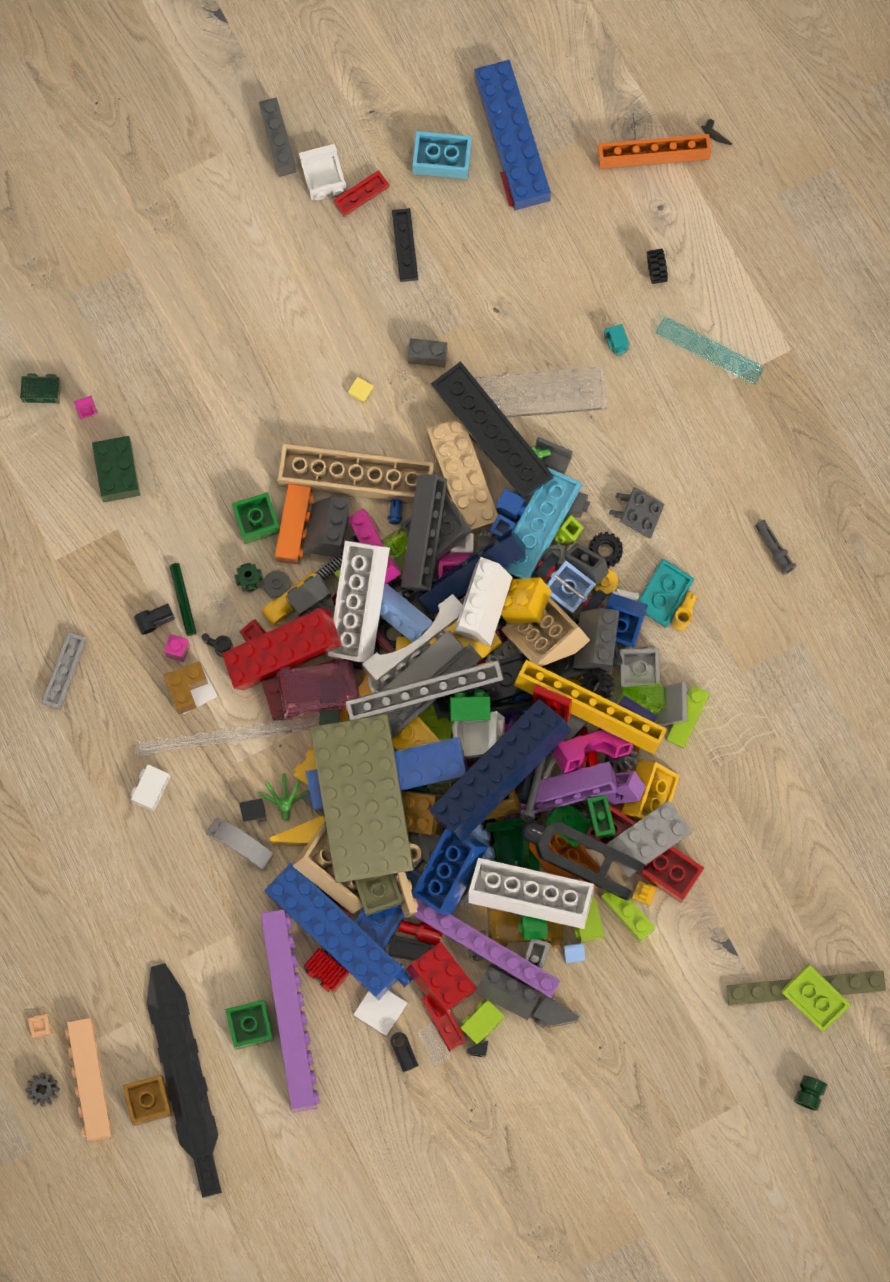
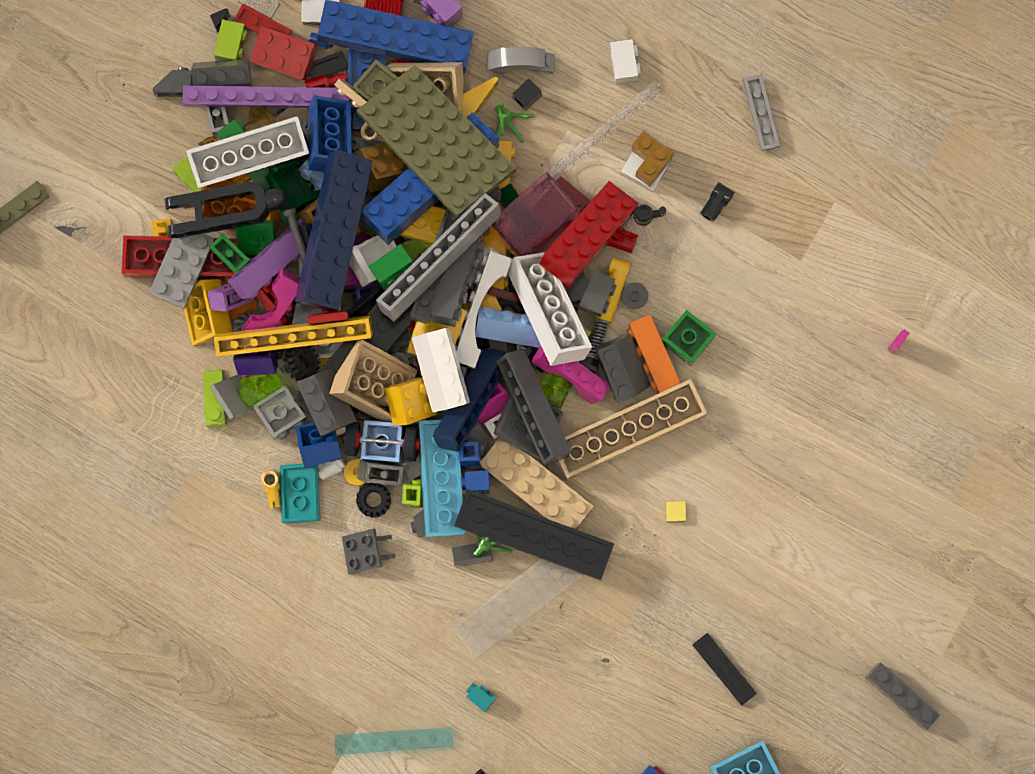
camera: 145 degrees right, 5 degrees up
(40, 389) = (949, 336): clear green brick -> none
(116, 469) = (836, 307): dark green brick -> none
(177, 648) = (680, 188): dark pink brick -> none
(183, 599) = (704, 234): dark green axle -> none
(248, 584) = (657, 290): dark green brick -> none
(322, 172) = (839, 689): white panel -> none
(361, 193) = (793, 691): red plate -> none
(395, 512) = (574, 420): blue pin -> none
(427, 352) = (638, 579): dark grey brick -> none
(574, 953) = (190, 143): light blue slope -> none
(629, 916) = (153, 199): lime brick -> none
(779, 554) = (220, 590): dark grey pin -> none

